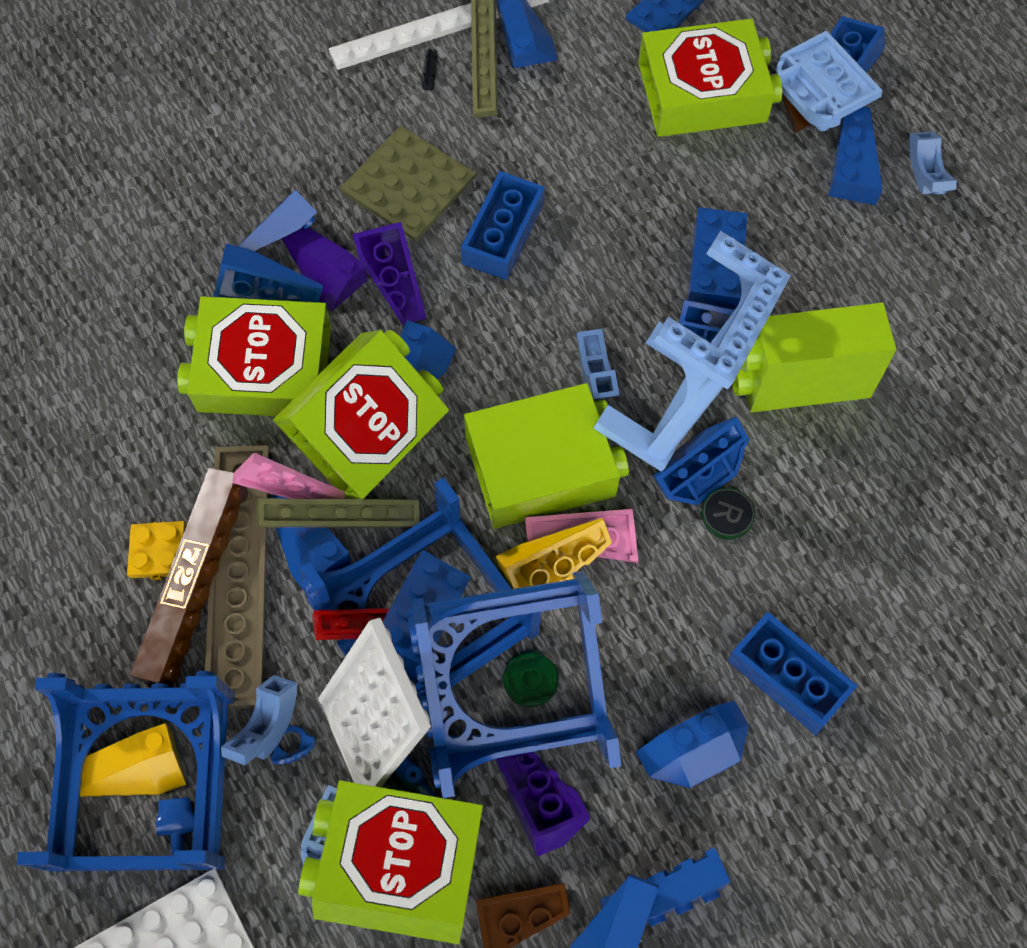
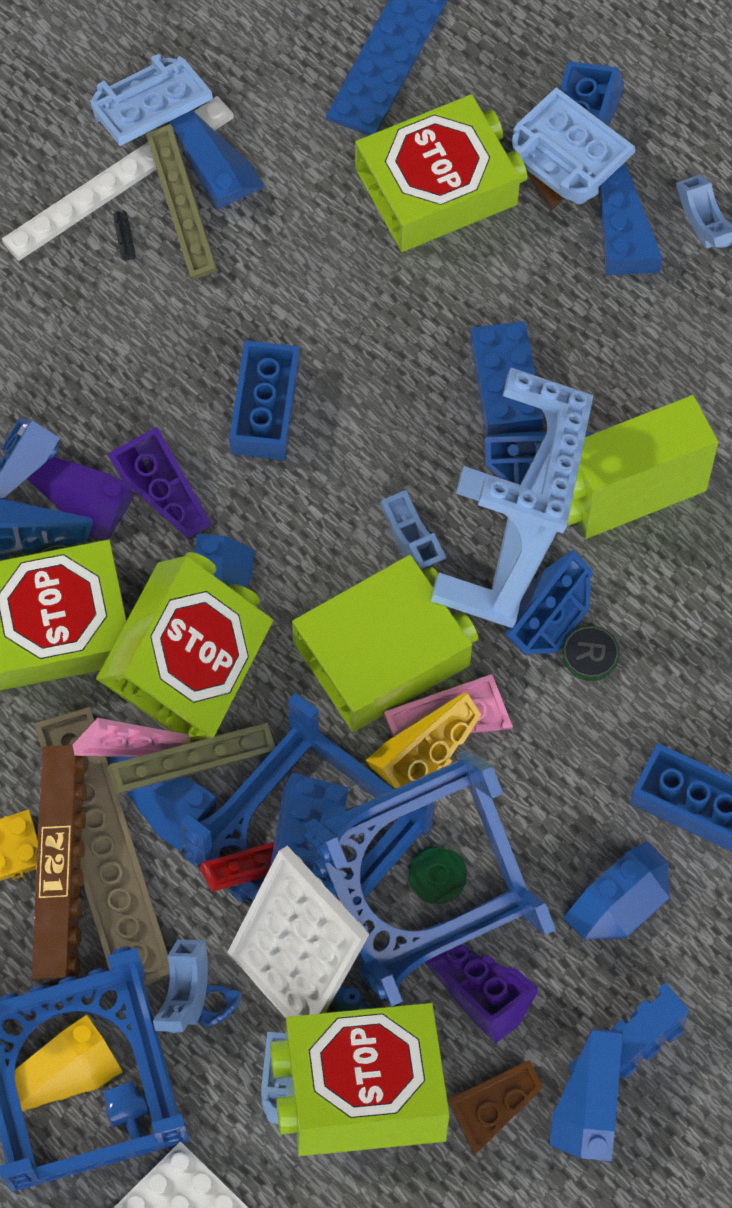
camera: 15 degrees left, 0 degrees up
(408, 182) = (142, 375): olive plate -> none

